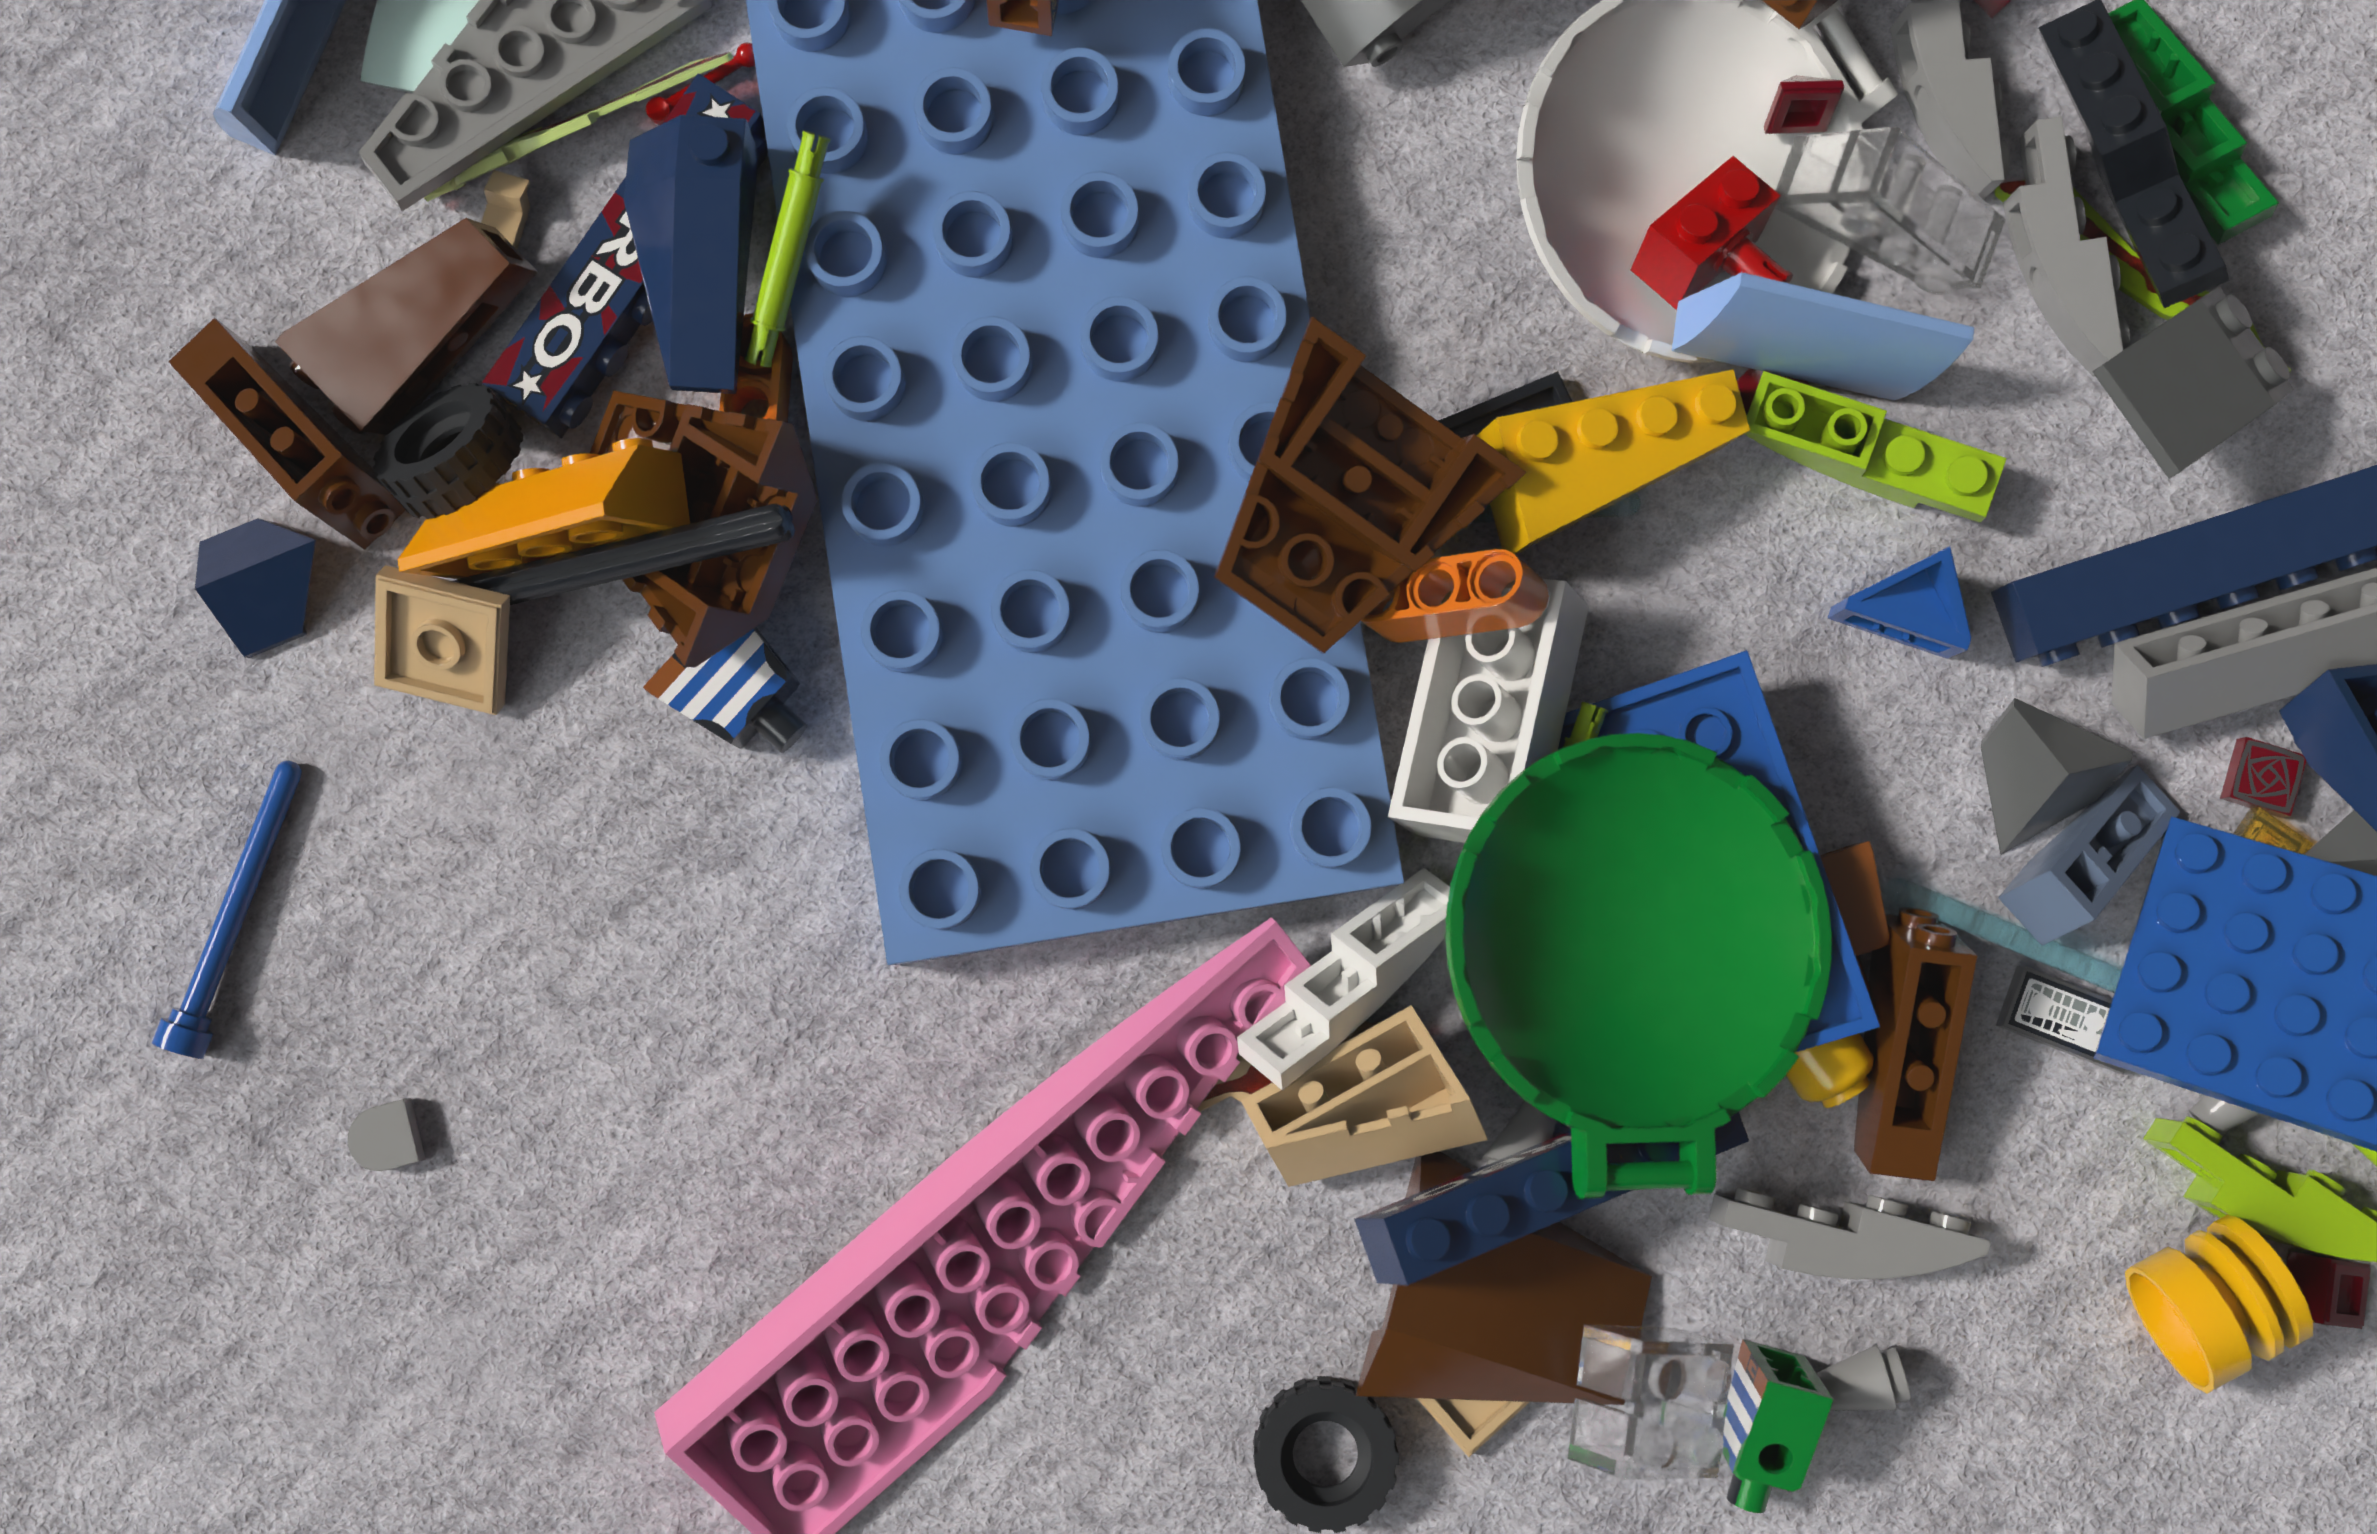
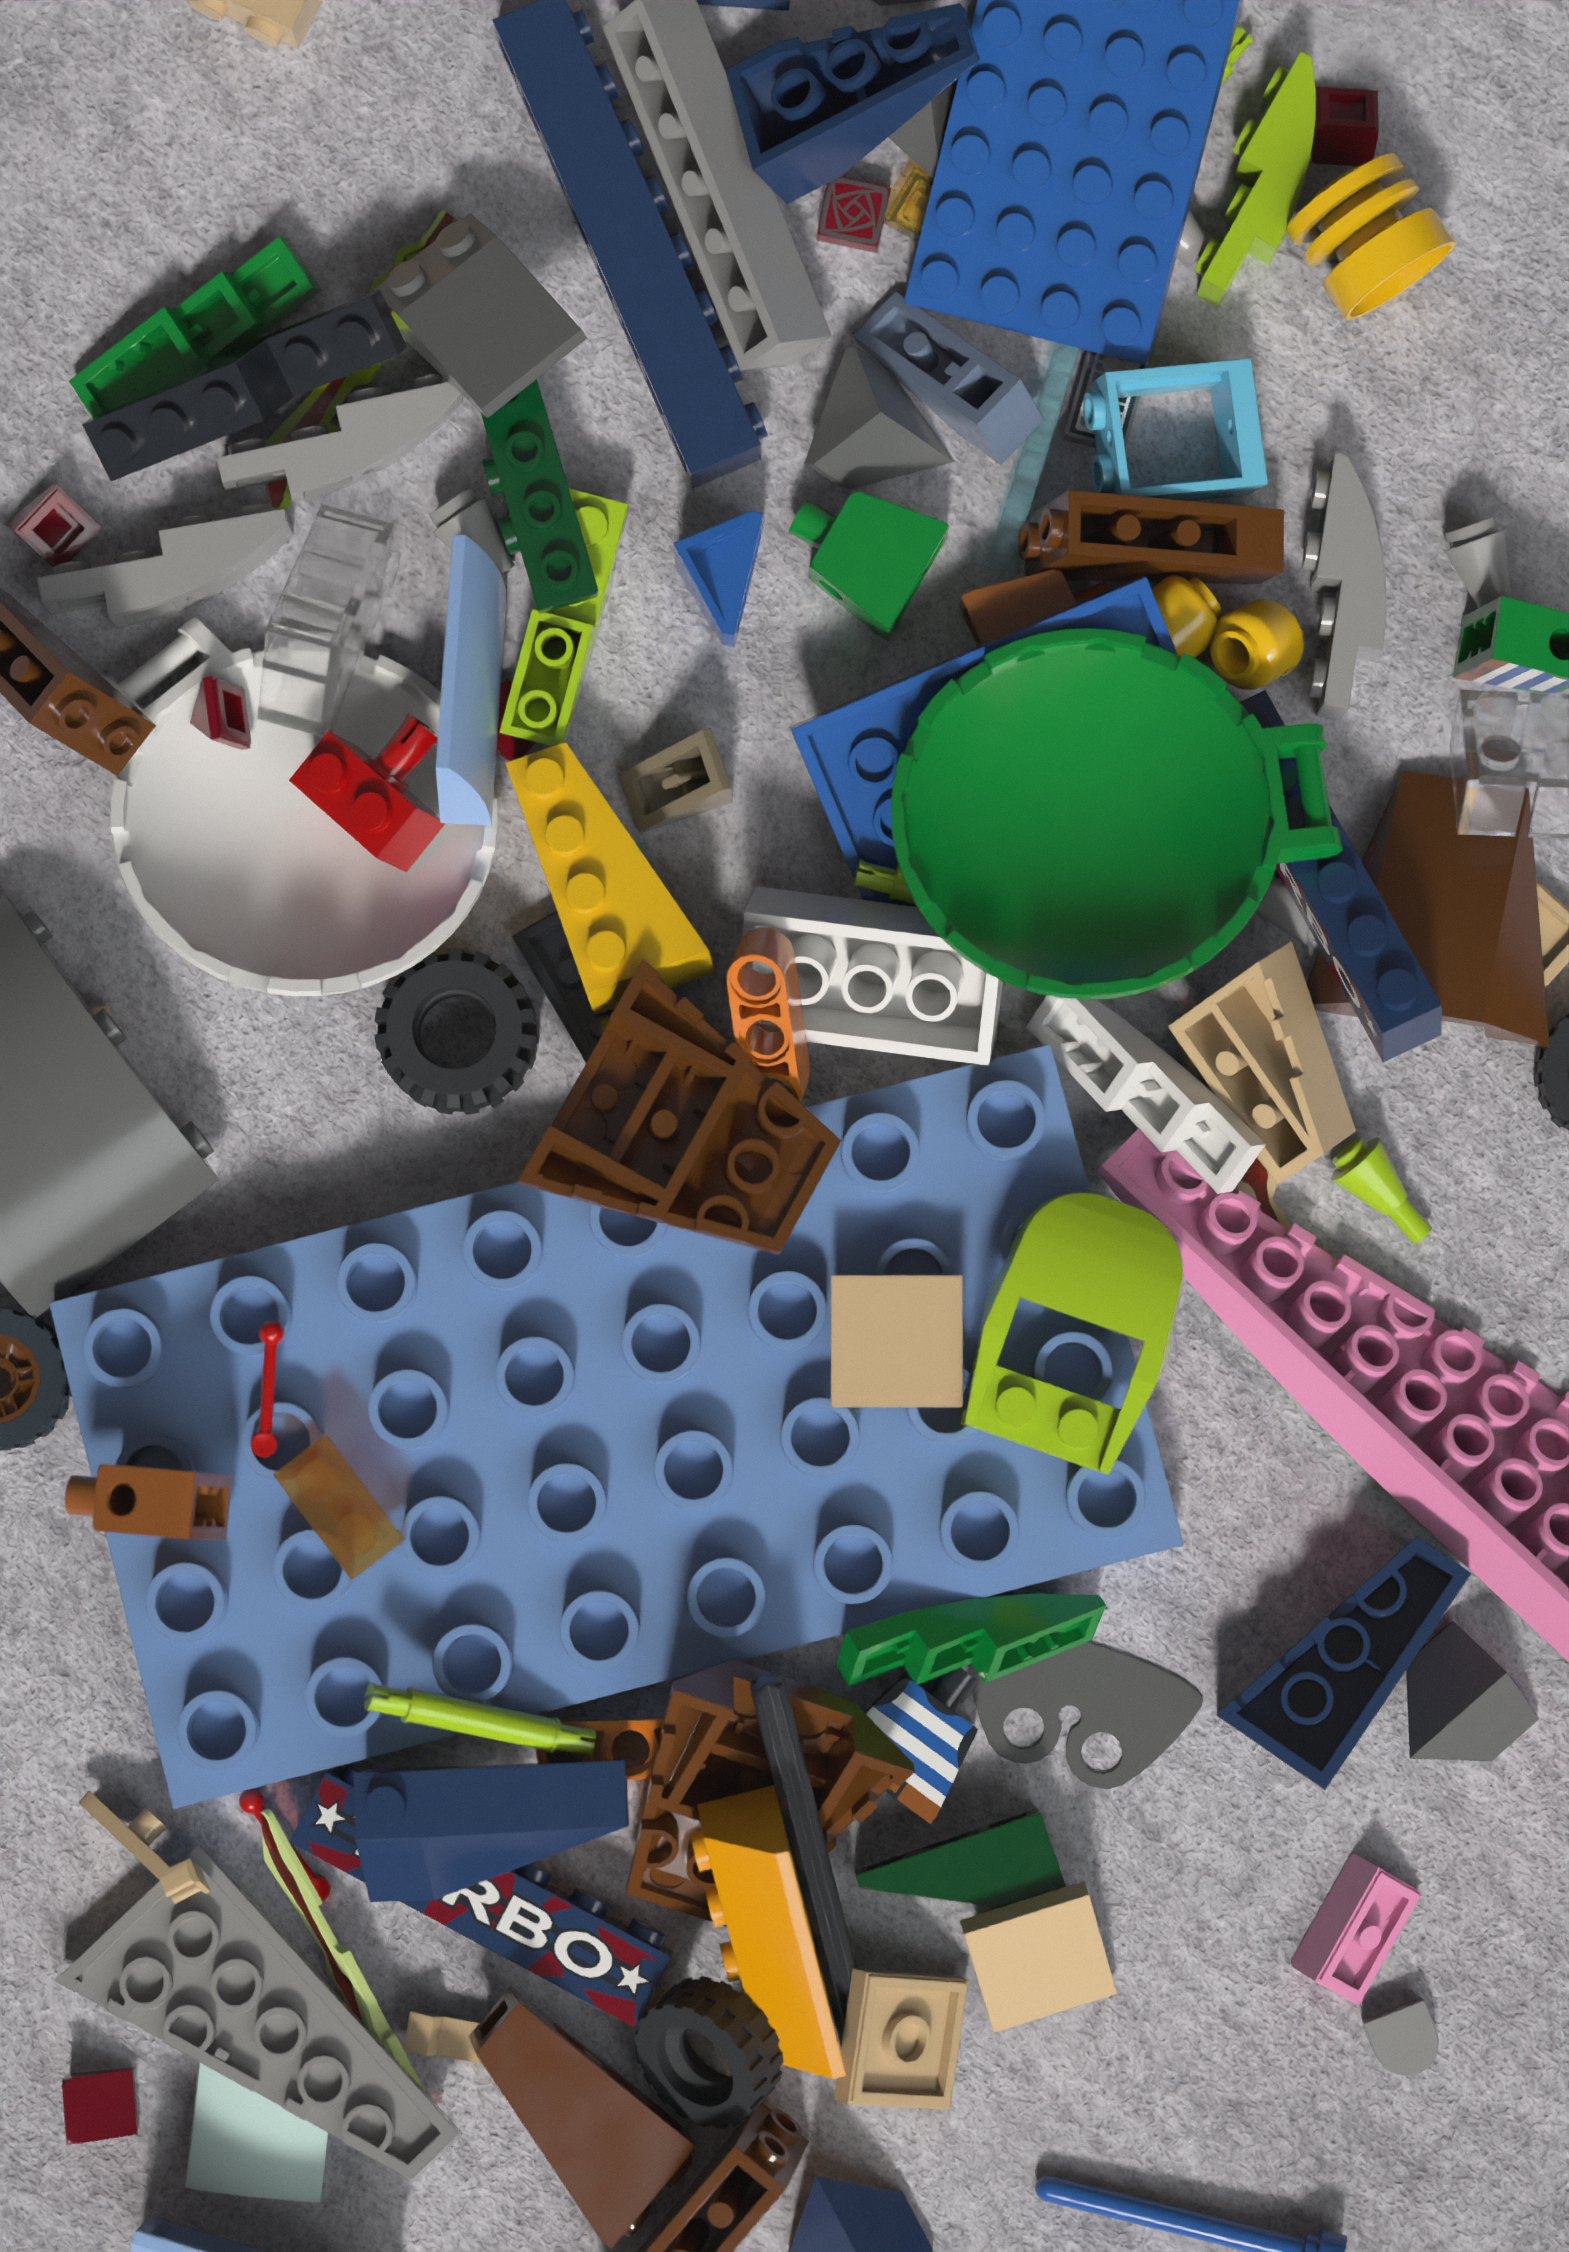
camera: 95 degrees left, 0 degrees up
(499, 1100) = (1355, 1929): none -> bright pink slope
(504, 781) = (1038, 1956): none -> tan tile
(599, 735) = (979, 1867): none -> dark green slope
(706, 1229) = (1462, 1701): none -> dark grey slope
(743, 1110) = (1339, 1675): none -> dark blue wedge
(785, 828) = (1114, 1695): none -> dark grey piece
(823, 765) = (988, 1632): none -> green slope
(1008, 132) = (339, 1507): none -> clear orange plate
(1080, 69) = (265, 1442): none -> red hinge
(1116, 691) = (896, 1341): none -> tan tile
(1169, 904) = (1097, 1266): none -> lime slope
(1241, 1197) = (1371, 1177): none -> lime cone
(1477, 256) = (424, 987): none -> black tyre
(1698, 547) = (677, 782): none -> dark tan slope
(1795, 1138) = (1256, 644): none -> yellow head
(1913, 758) = (870, 555): none -> green torso
(1973, 370) = (472, 518): none -> light grey cone
(2002, 425) = (539, 502): none -> dark green bracket
(2030, 1143) = (1235, 425): none -> medium azure window

